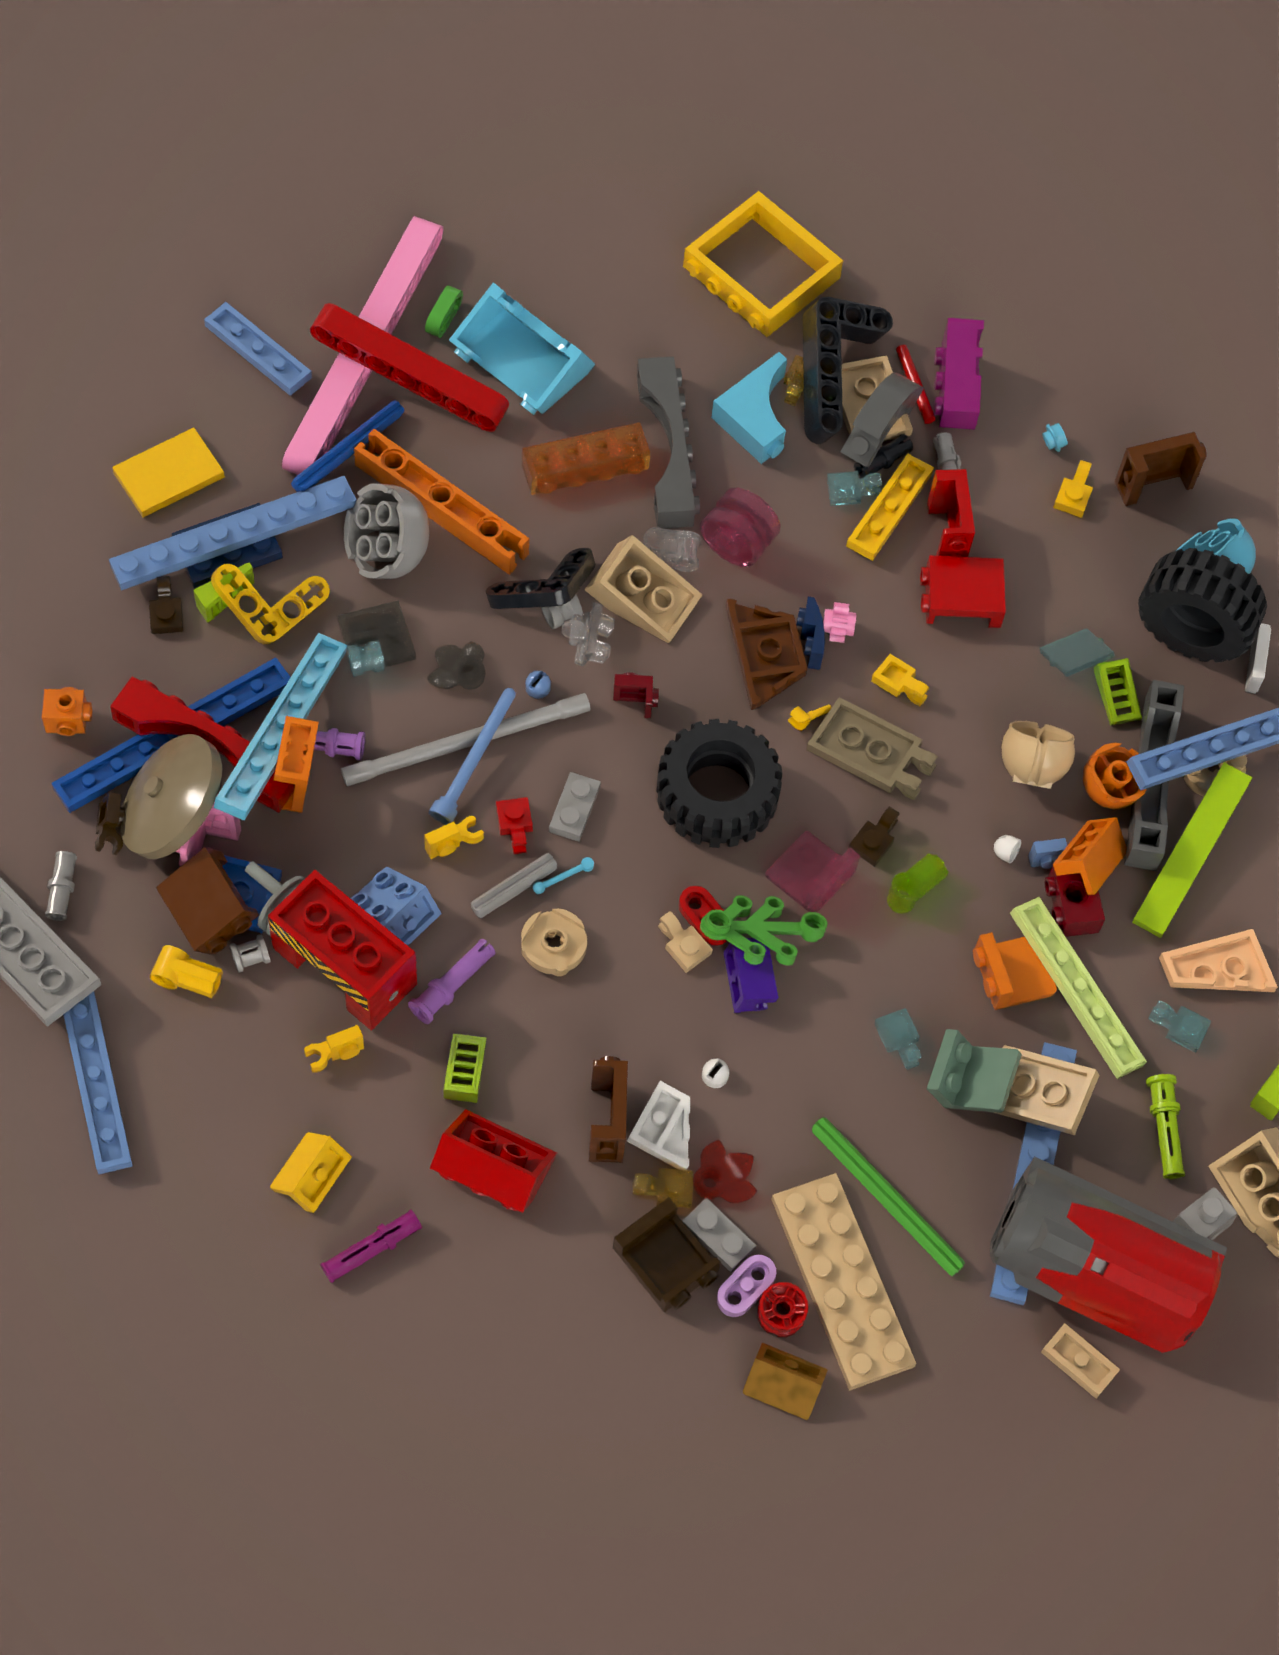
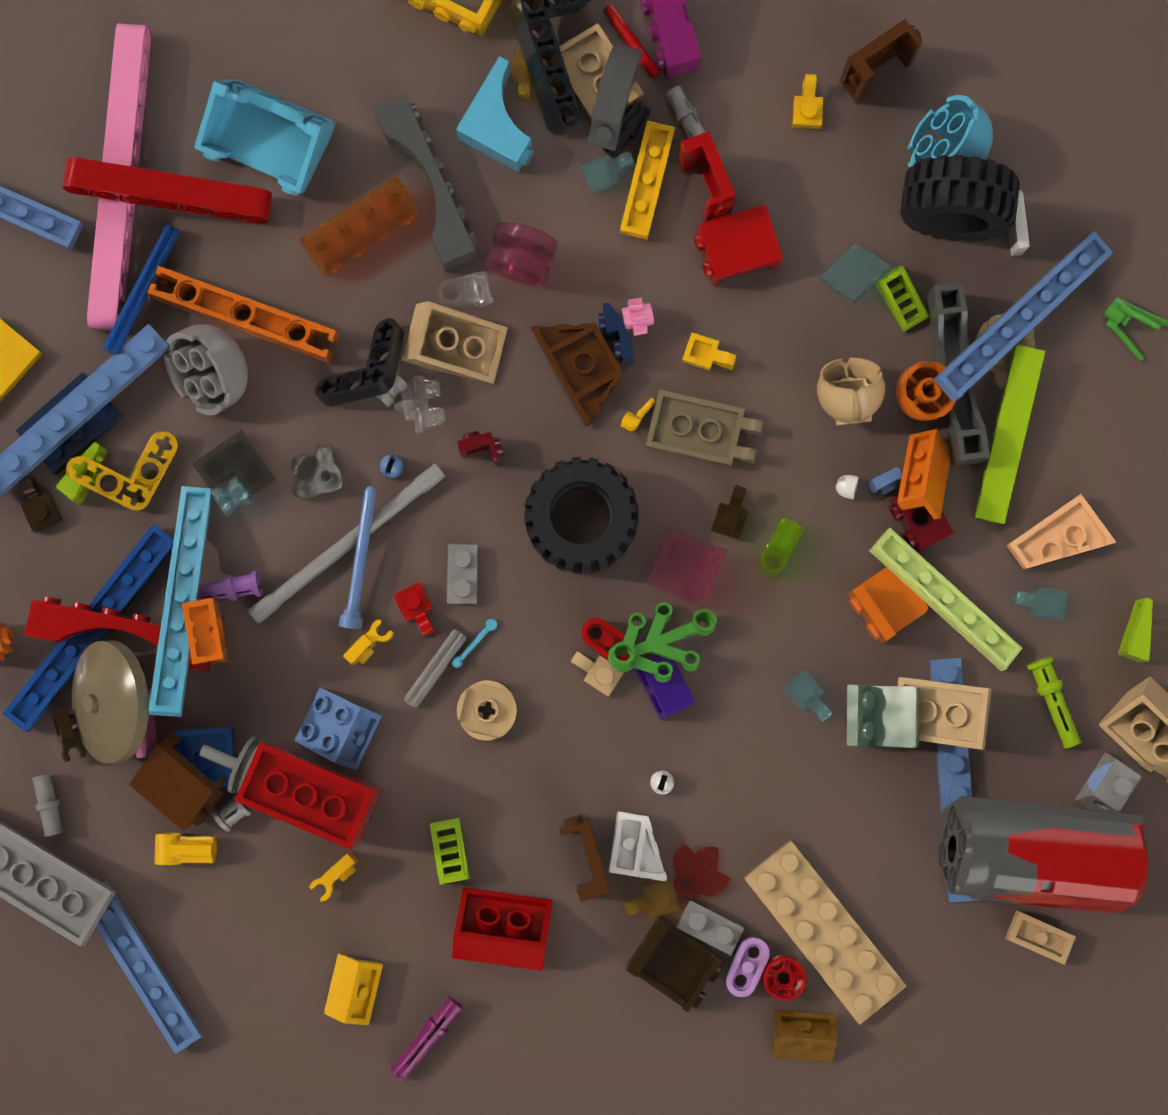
camera: 10 degrees left, 20 degrees up
(442, 990) = (407, 790): medium lavender pin -> none
(444, 311) = (179, 115): bright green beam -> none
(888, 1196) = (839, 845): bright green axle -> none
(1055, 437) = (774, 55): medium azure plate -> none

